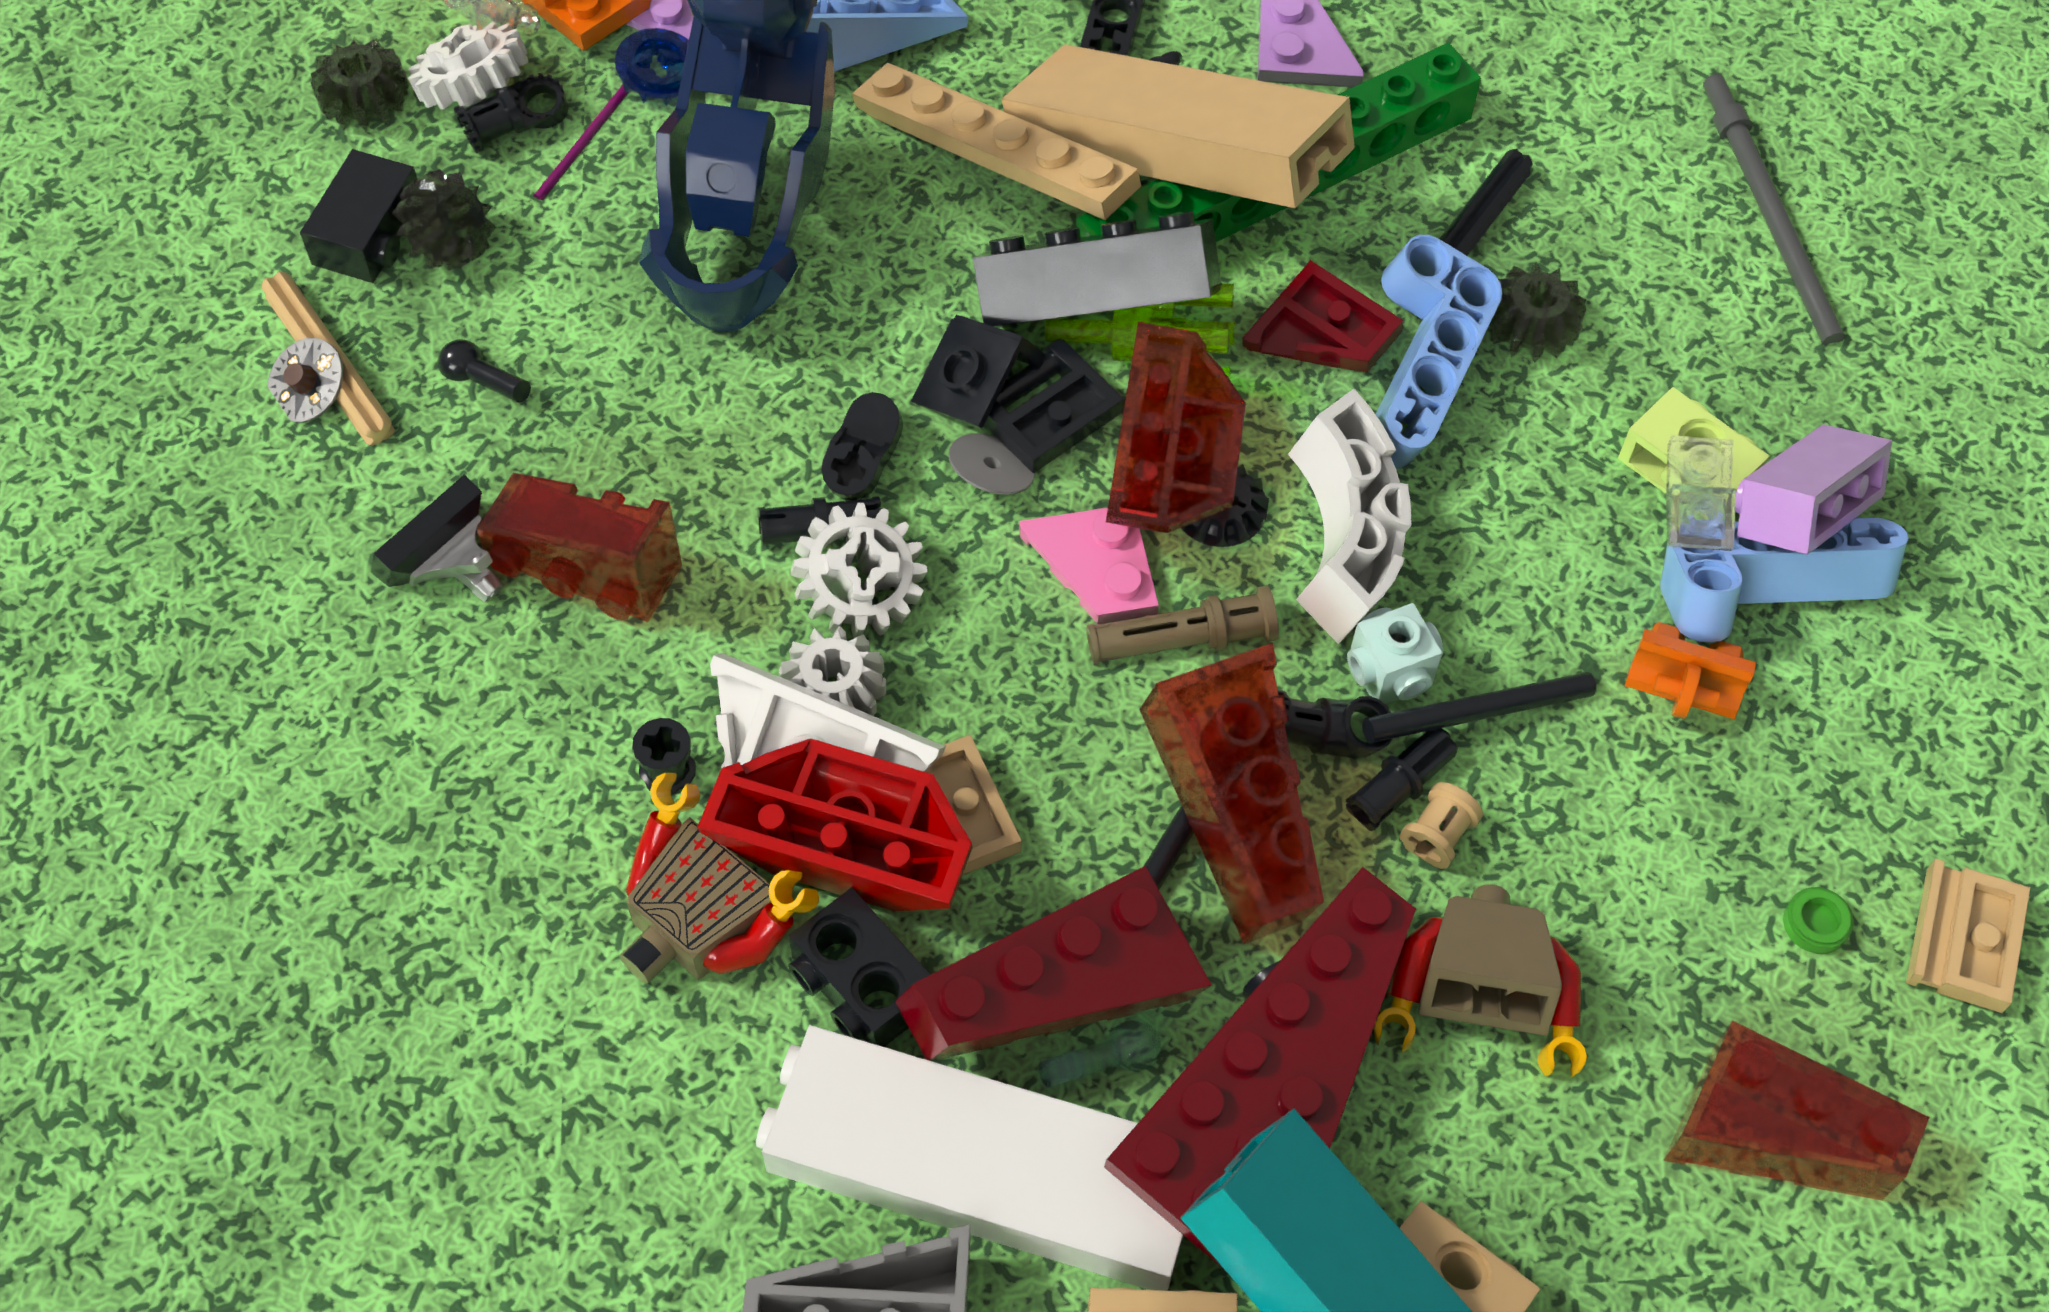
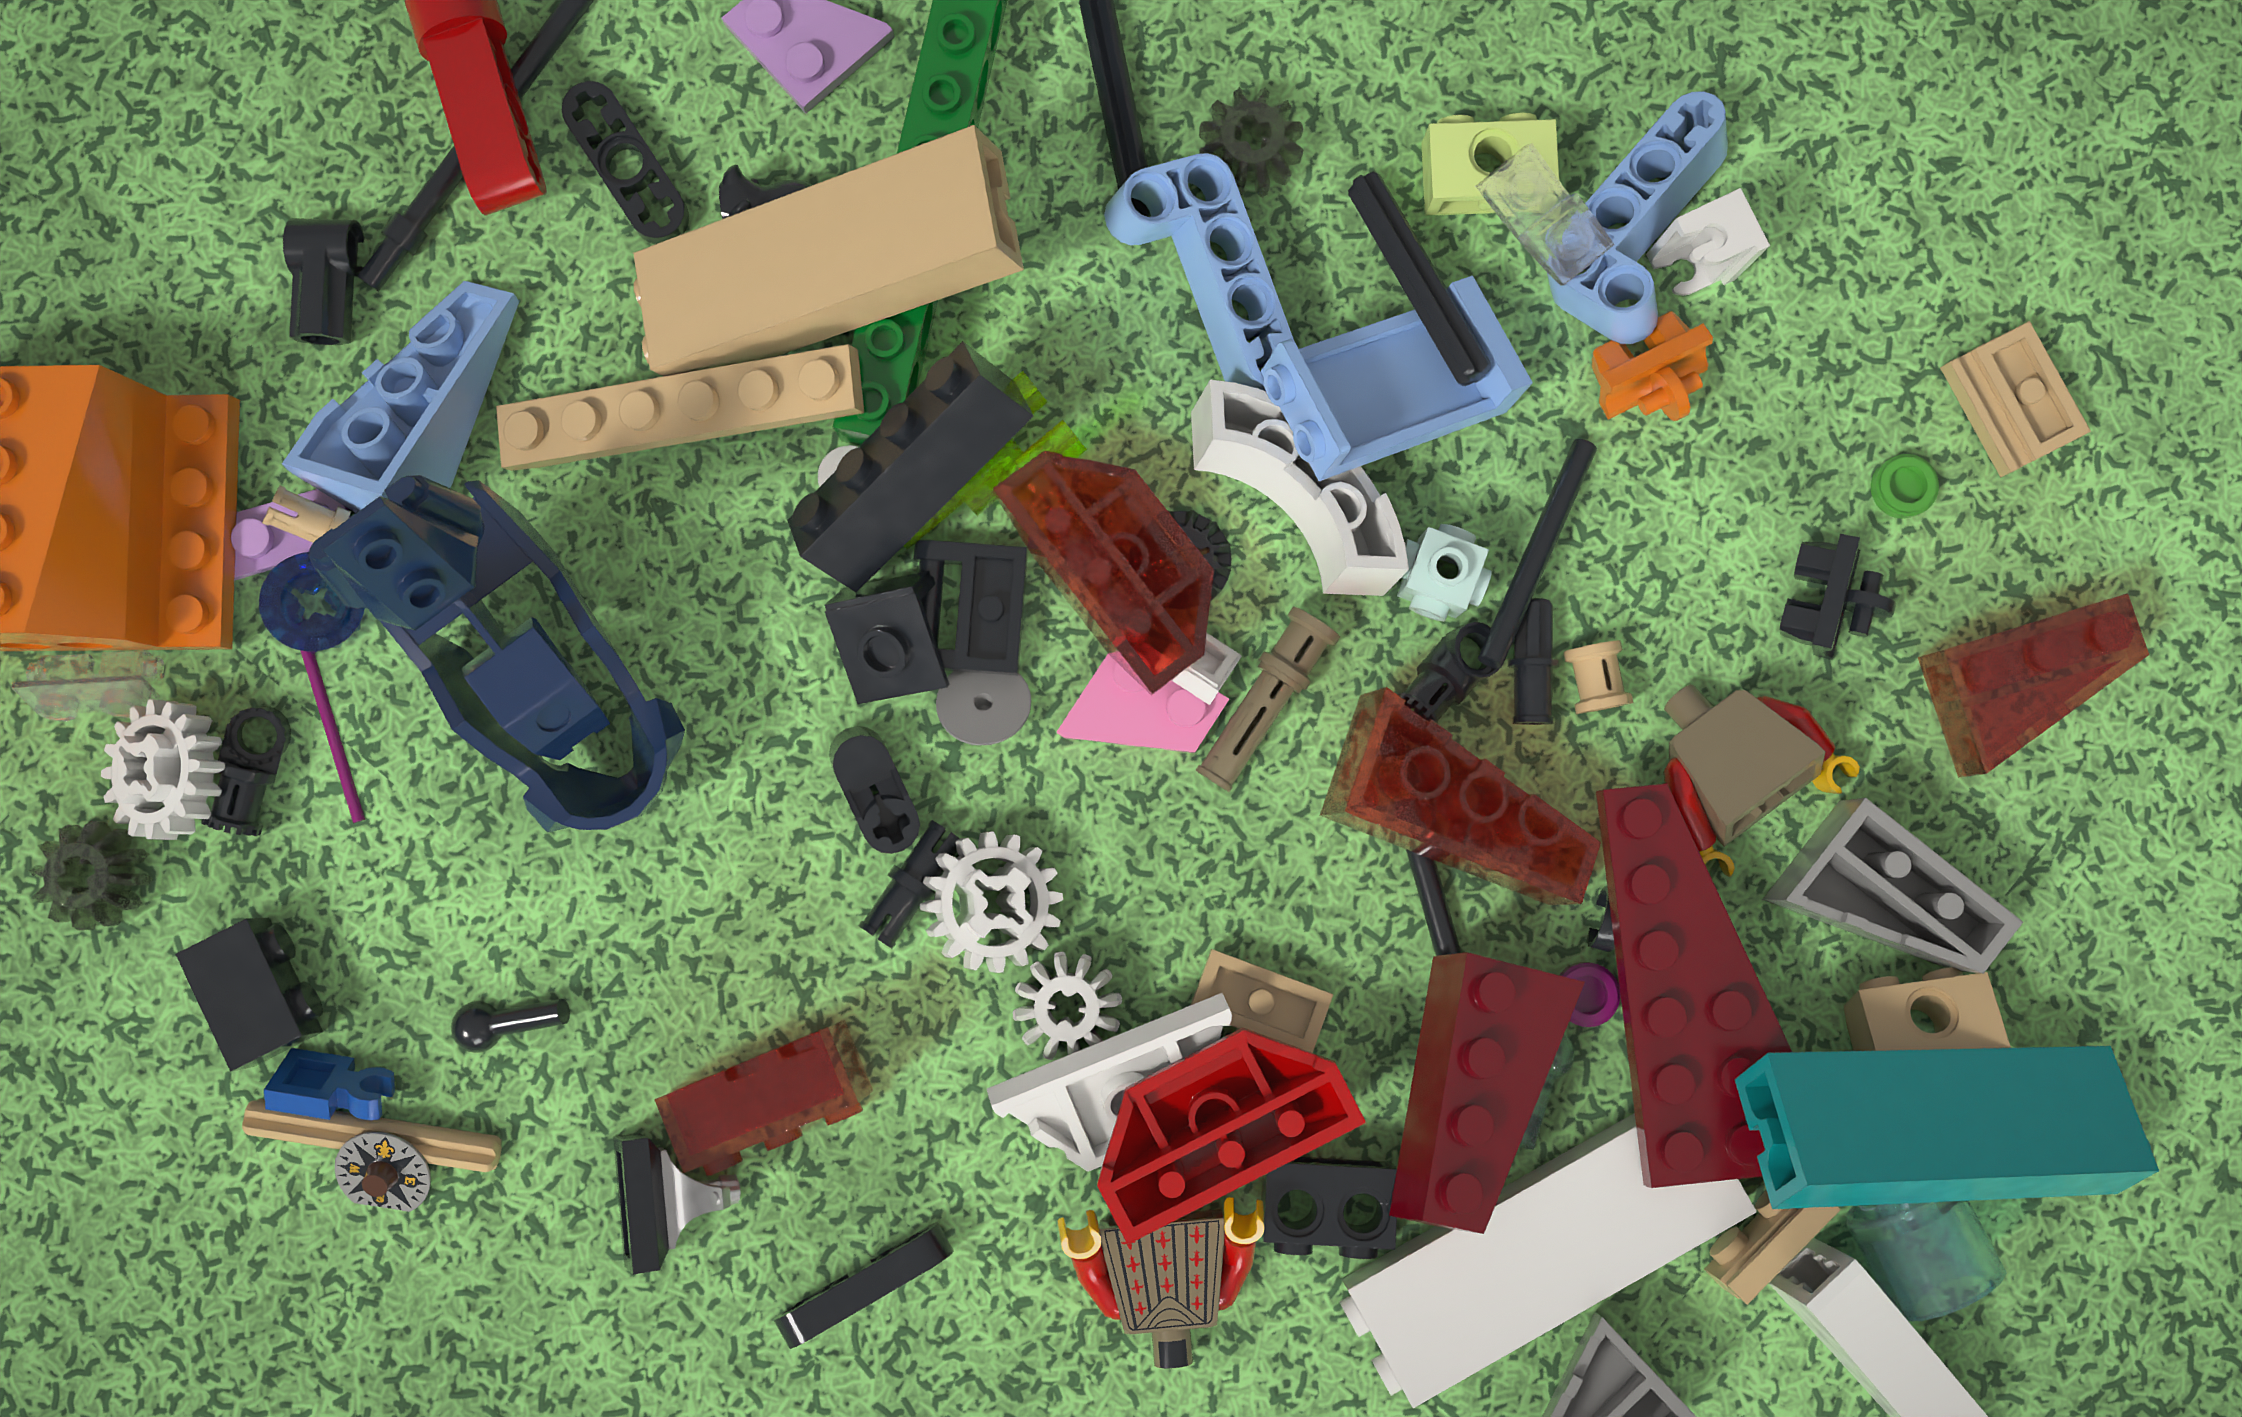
camera: 45 degrees left, 25 degrees up
(336, 298) = (320, 1082): none -> blue plate
(444, 220) = (327, 936): clear smoke gear -> none
(485, 711) = (856, 1292): none -> black beam
(664, 748) = (1014, 1212): black bush -> none
(1162, 564) = (1210, 672): none -> white tile
(1199, 1022) = (1598, 996): none -> magenta tile
(1324, 324) = (1101, 315): dark red wing -> none
(1483, 508) = (1388, 387): none -> light blue panel
(1519, 1161) = (1893, 889): none -> light grey wedge
(1569, 473) = (1419, 279): none -> black axle
(1684, 939) = (1836, 568): none -> black hips
(1810, 608) = (1715, 238): none -> white hinge
(1813, 488) = (1617, 125): lavender brick -> none

